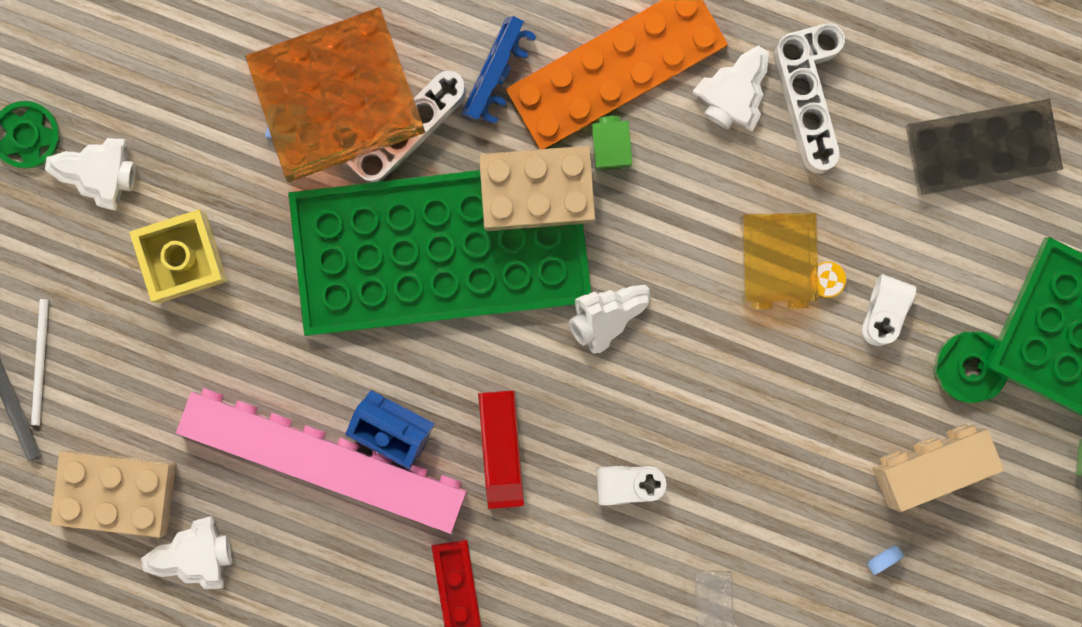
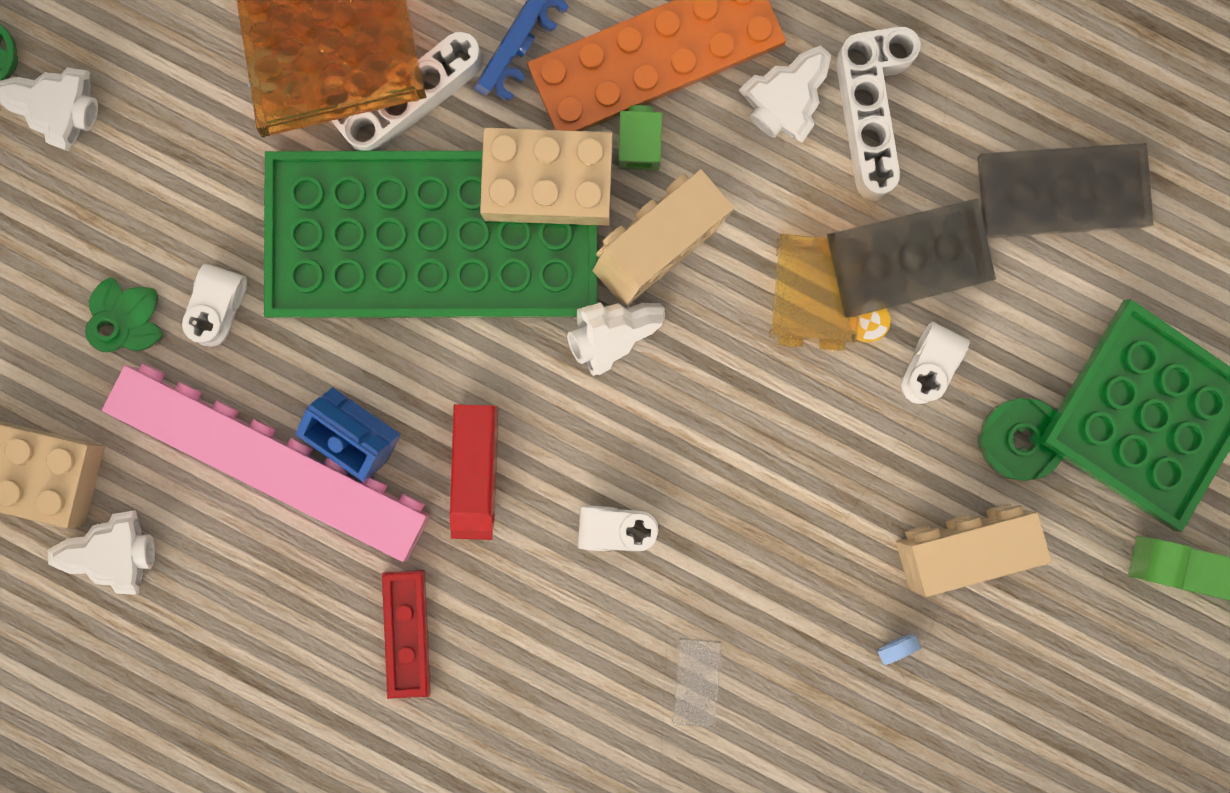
camera: 10 degrees right, 0 degrees up
(178, 256) = (129, 209): light yellow brick -> none
(184, 346) = (128, 314): none -> green plate
(259, 322) = (214, 300): none -> white piece
(640, 229) = (661, 236): none -> tan brick
(857, 222) = (911, 257): none -> clear smoke plate

